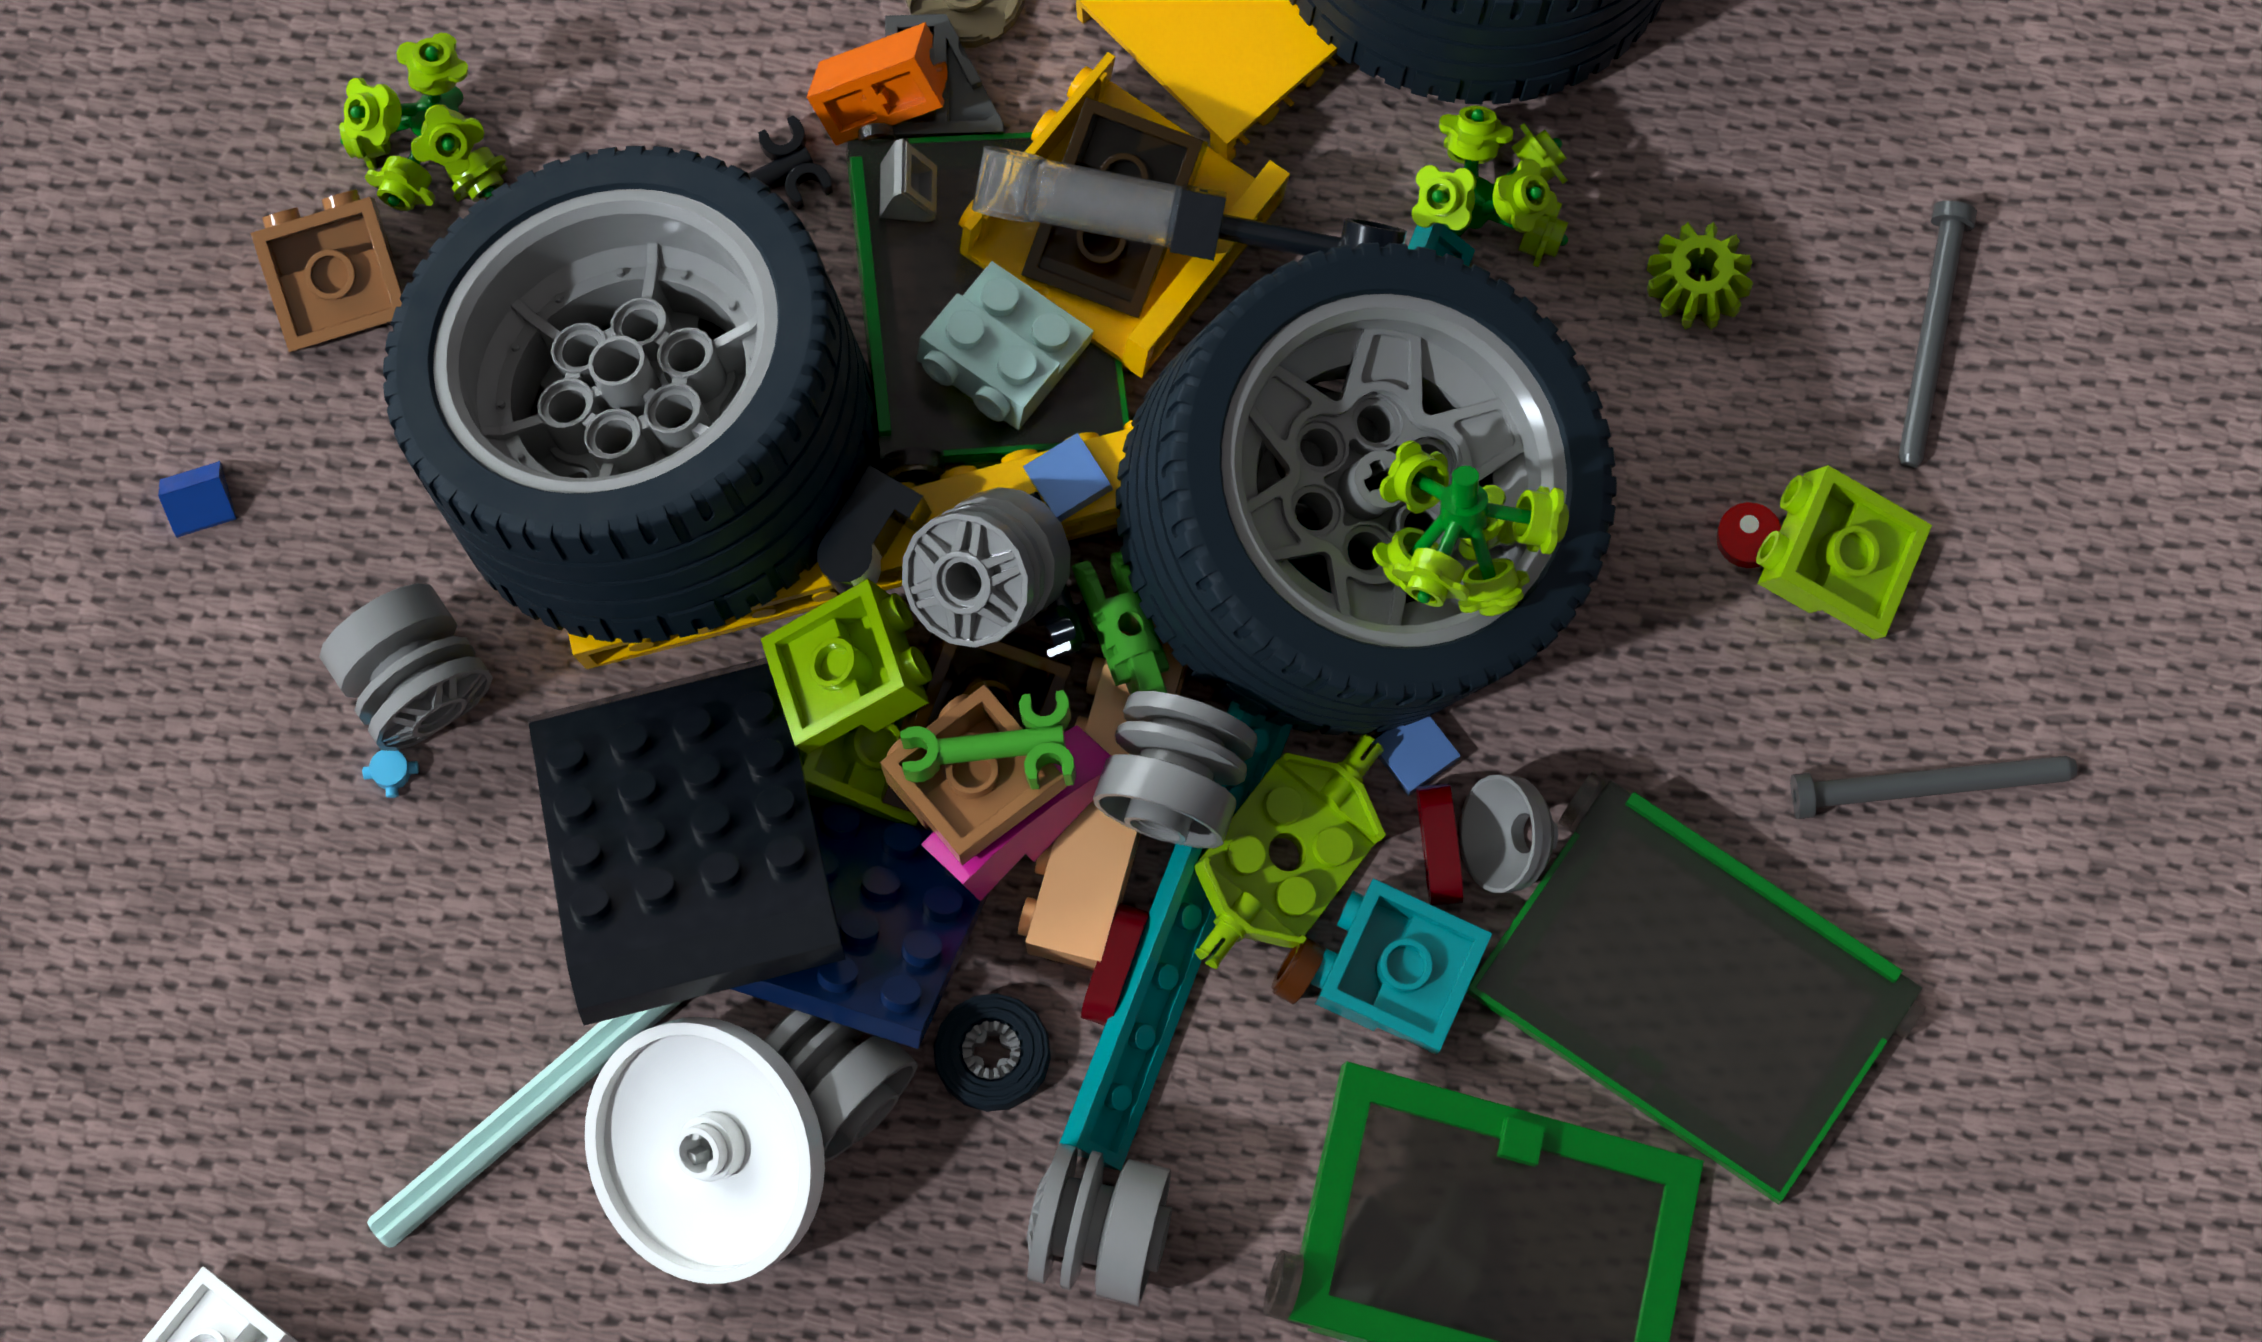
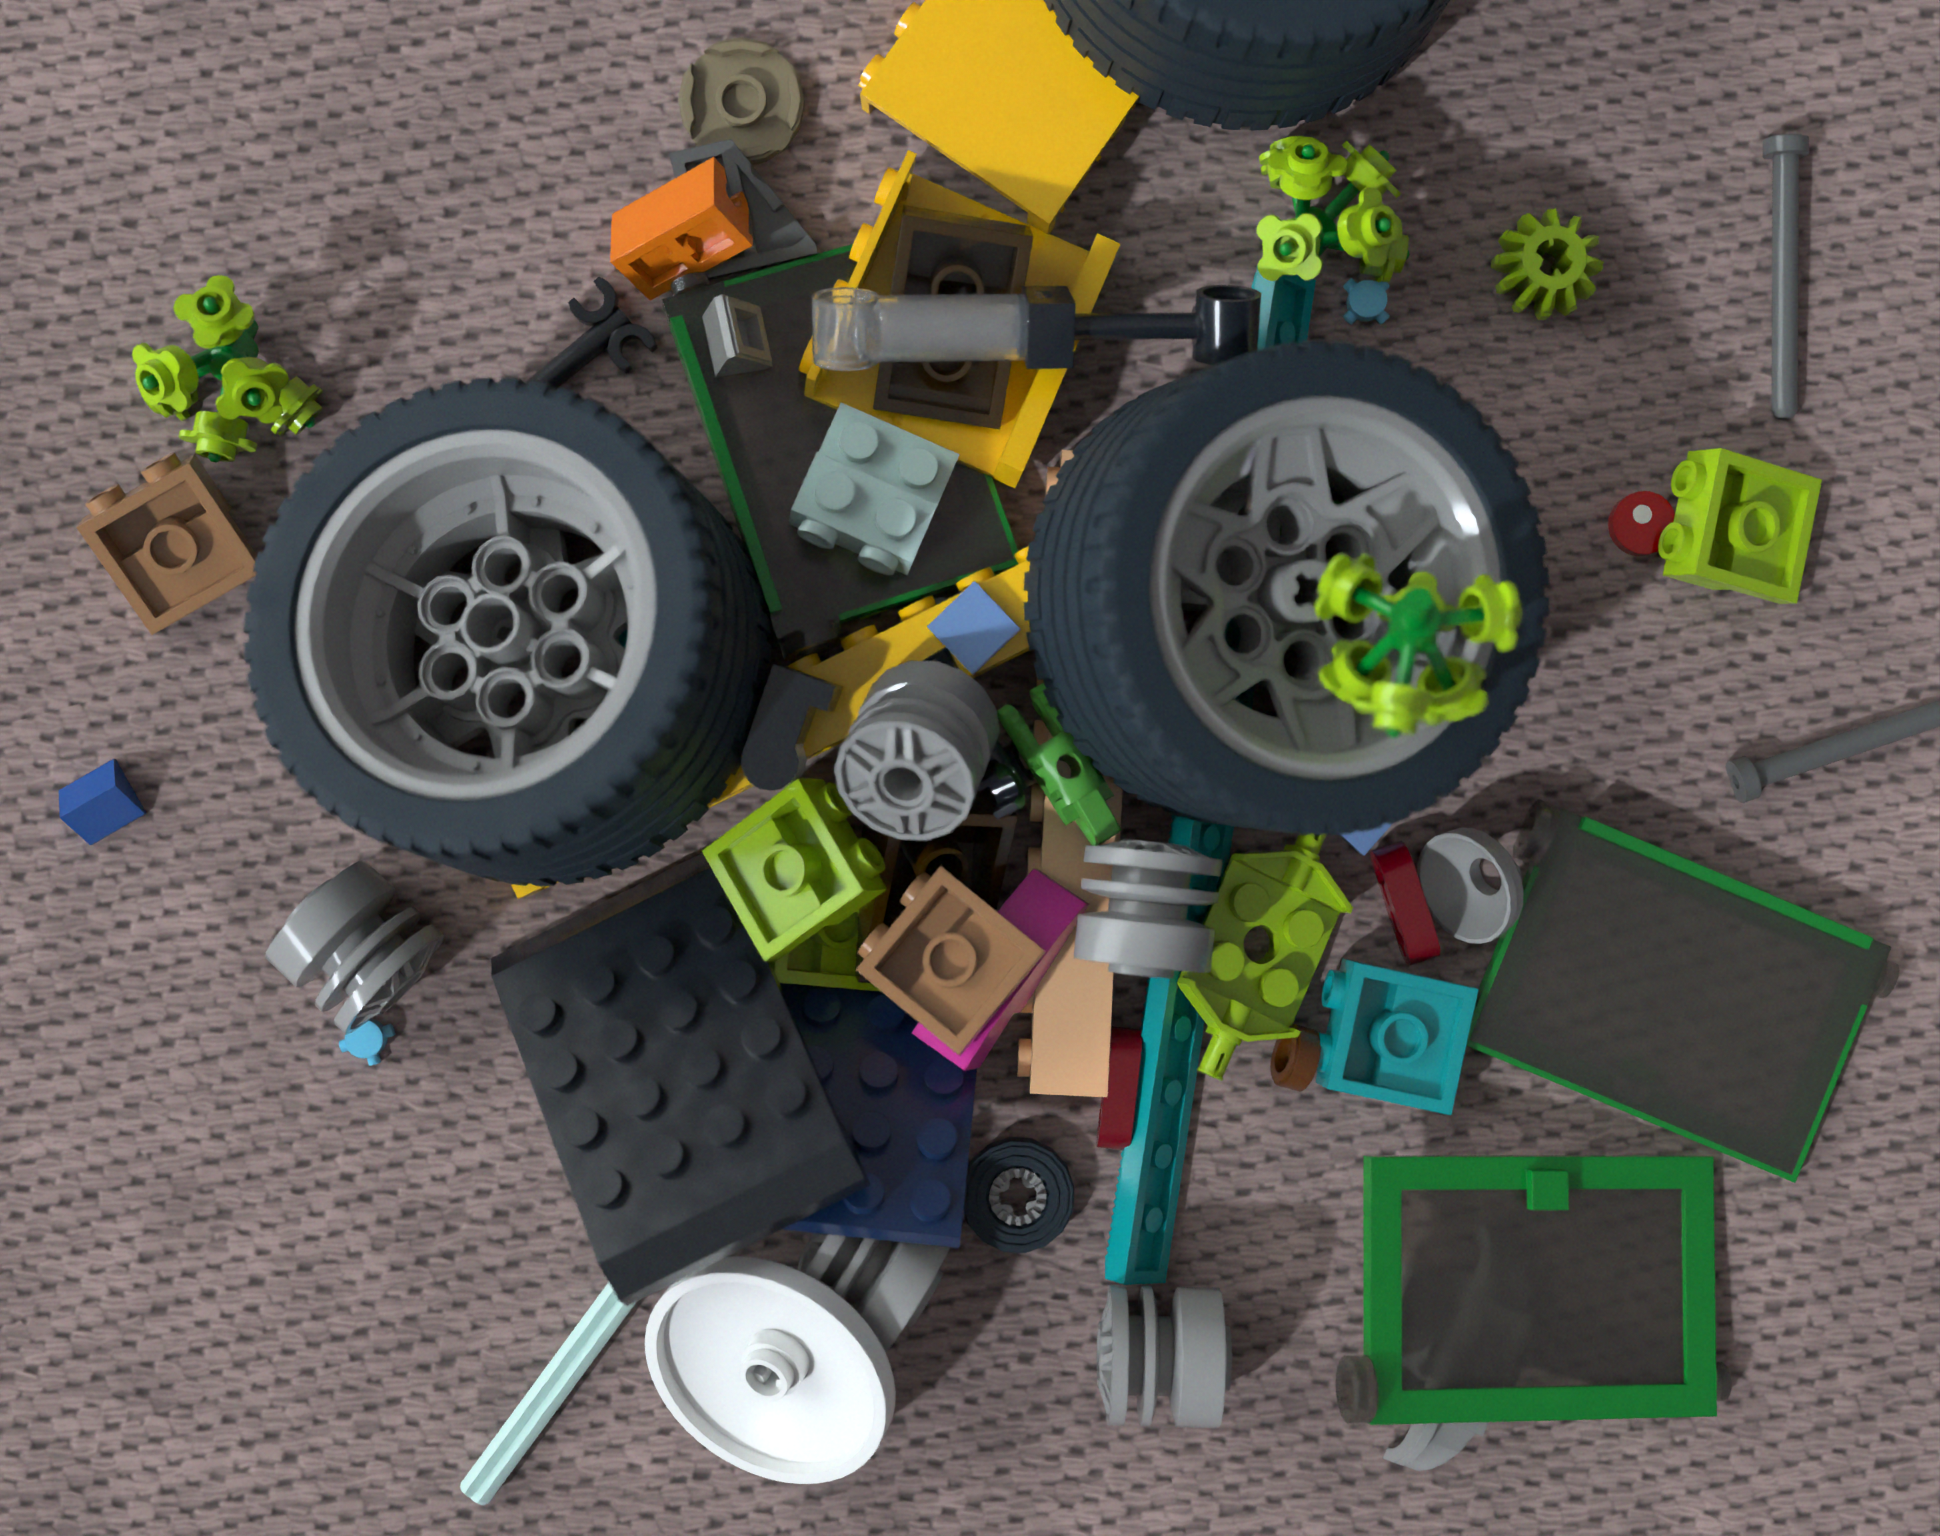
camera: 15 degrees left, 15 degrees up
(1040, 742) = (1014, 919): bright green bar -> none
(1523, 276) = (1366, 301): none -> medium azure piece

